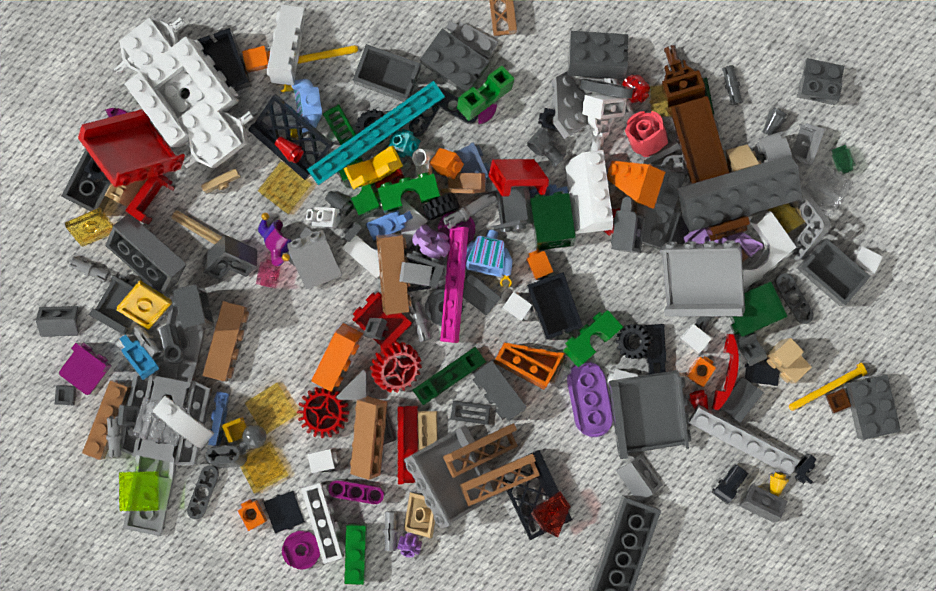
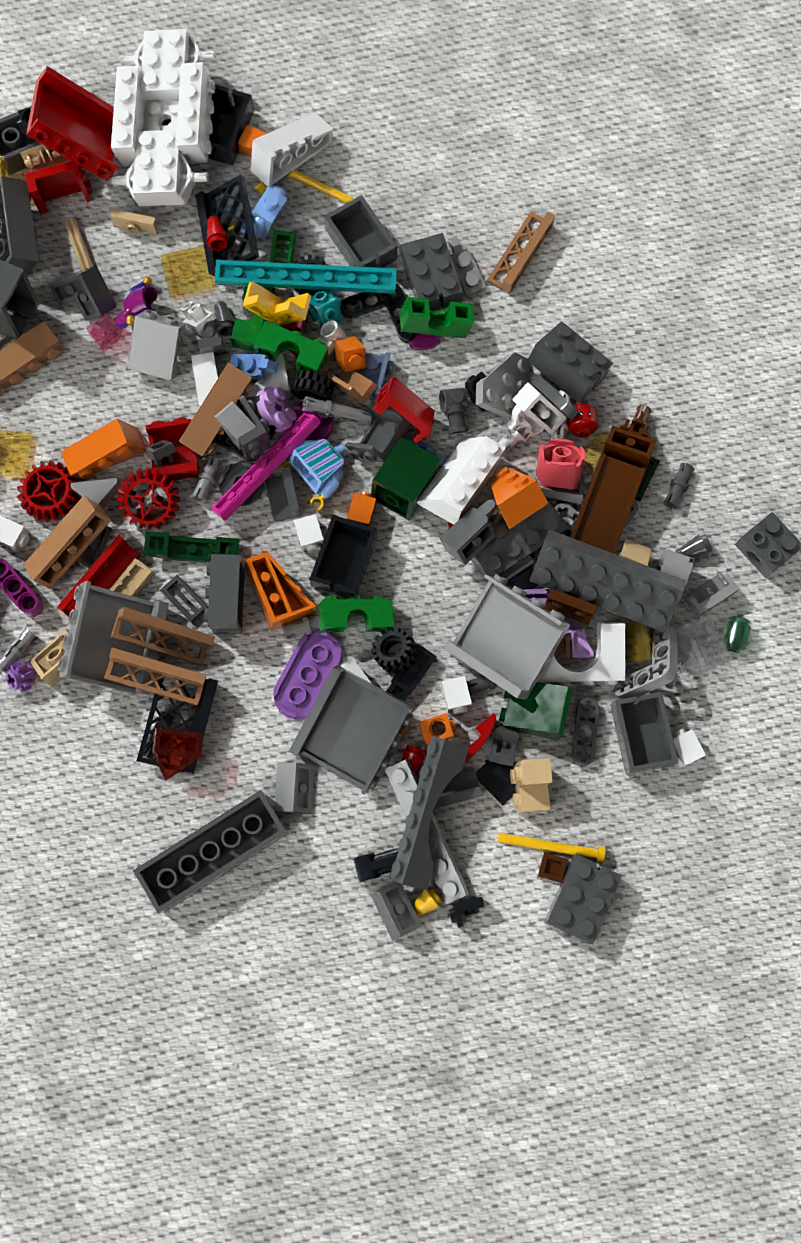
camera: 35 degrees right, 10 degrees down
(726, 395) = (413, 861): none -> dark grey arch

